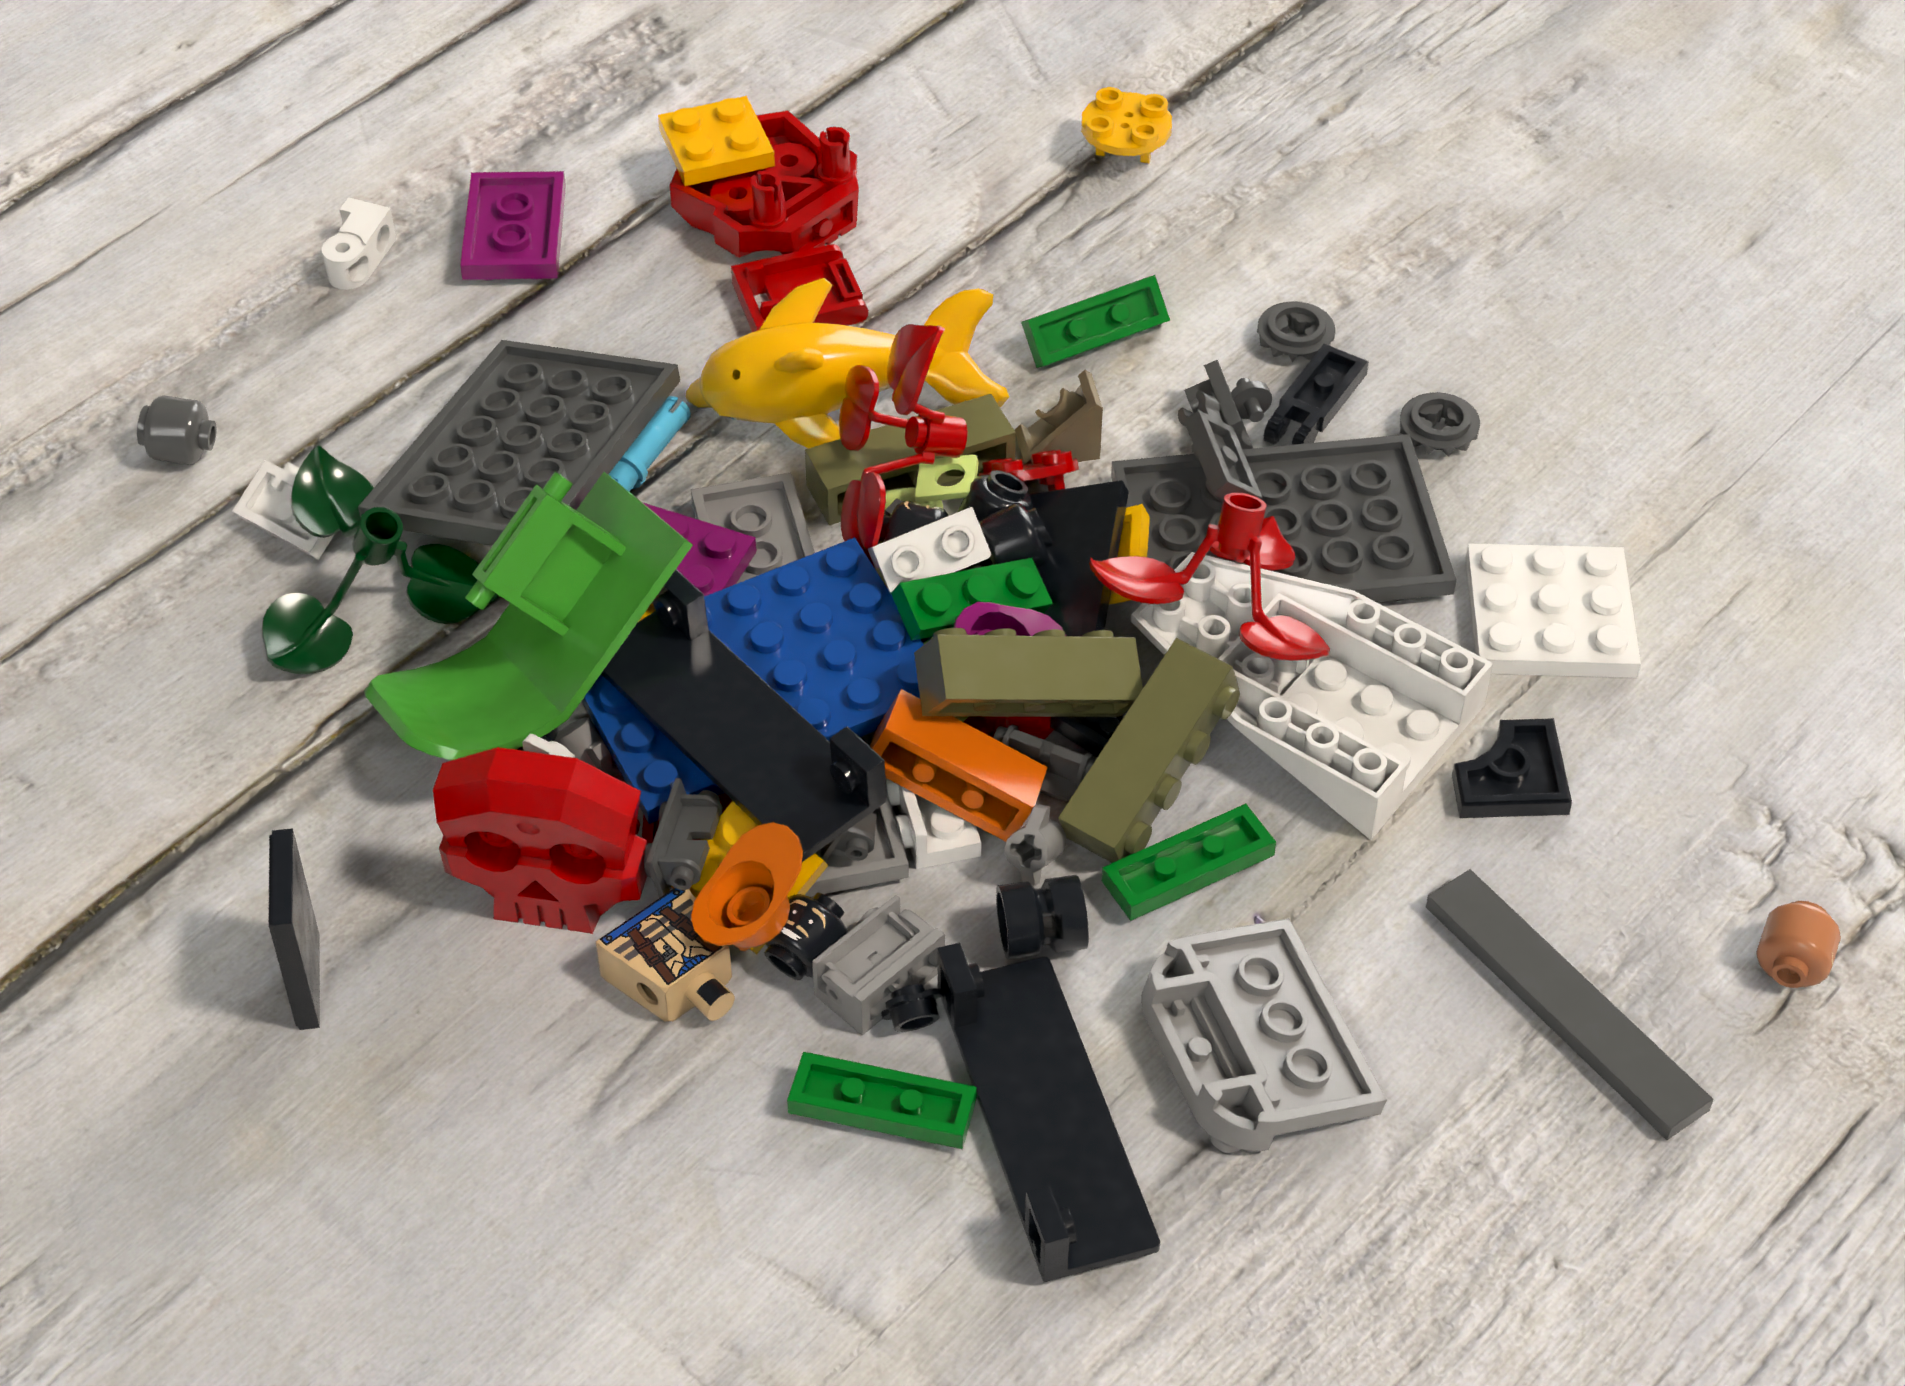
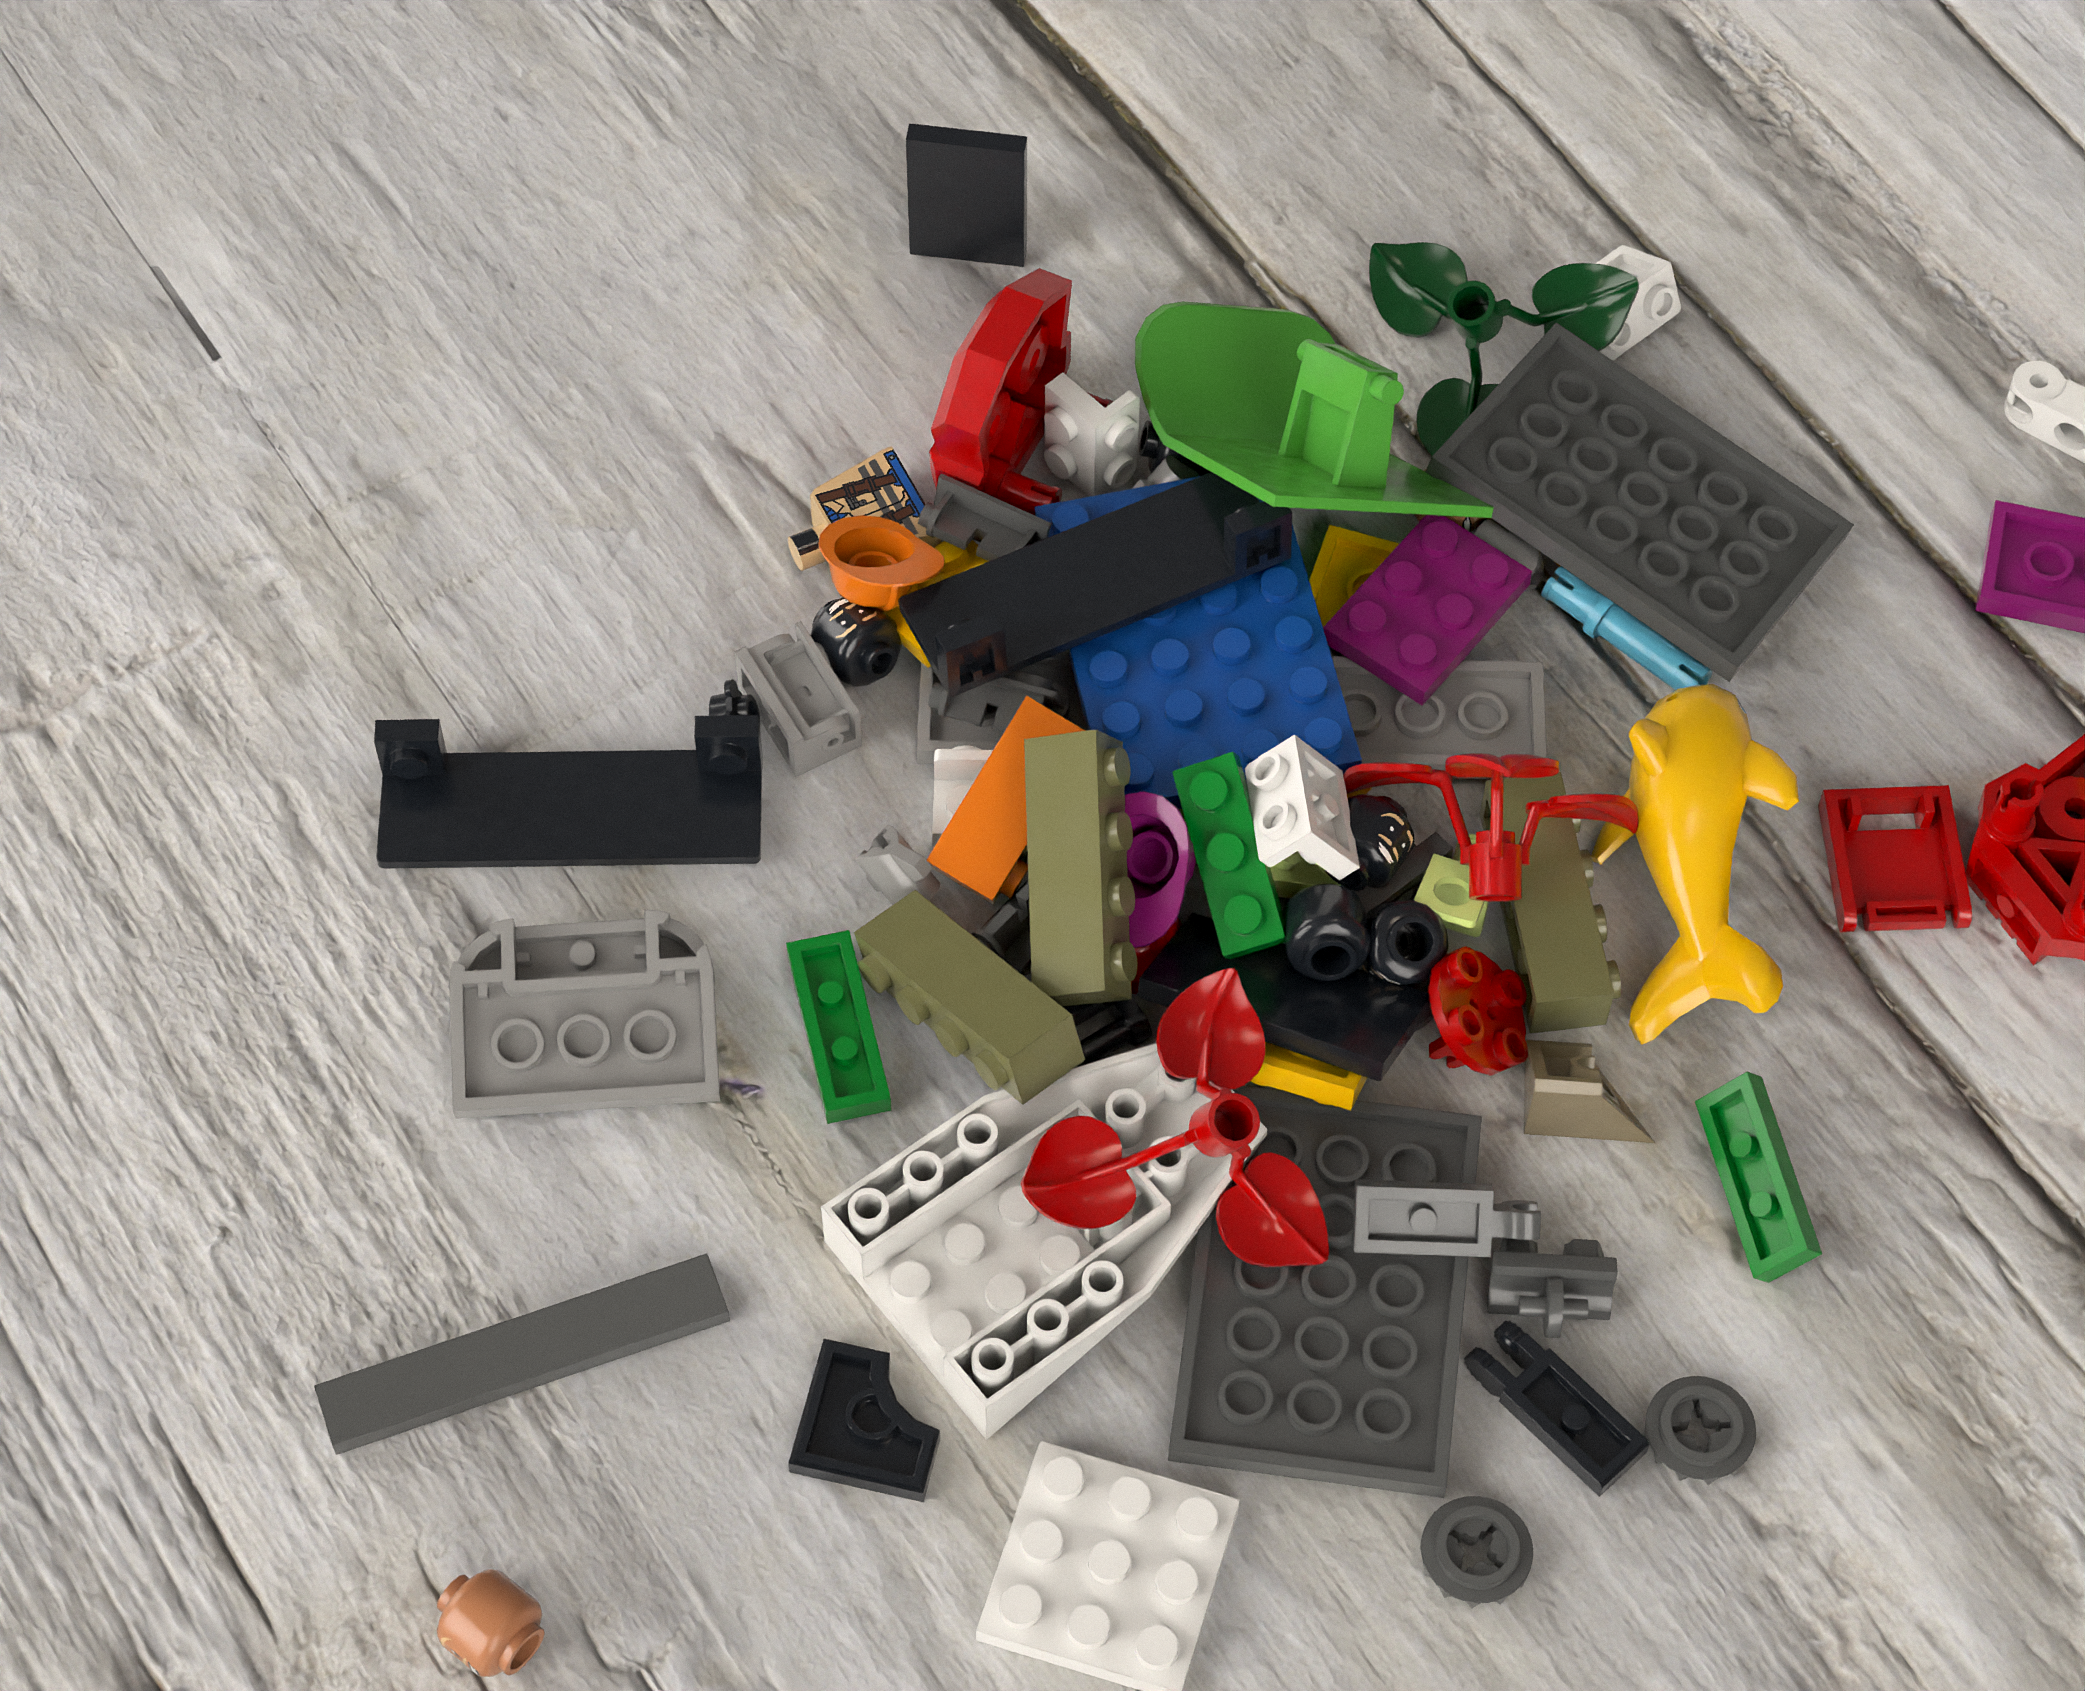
camera: 105 degrees right, 10 degrees up
(175, 430) = (1756, 201): dark grey head -> none
(882, 1100) = (635, 668): green plate -> none
(1021, 918) = (802, 853): black wheel -> none

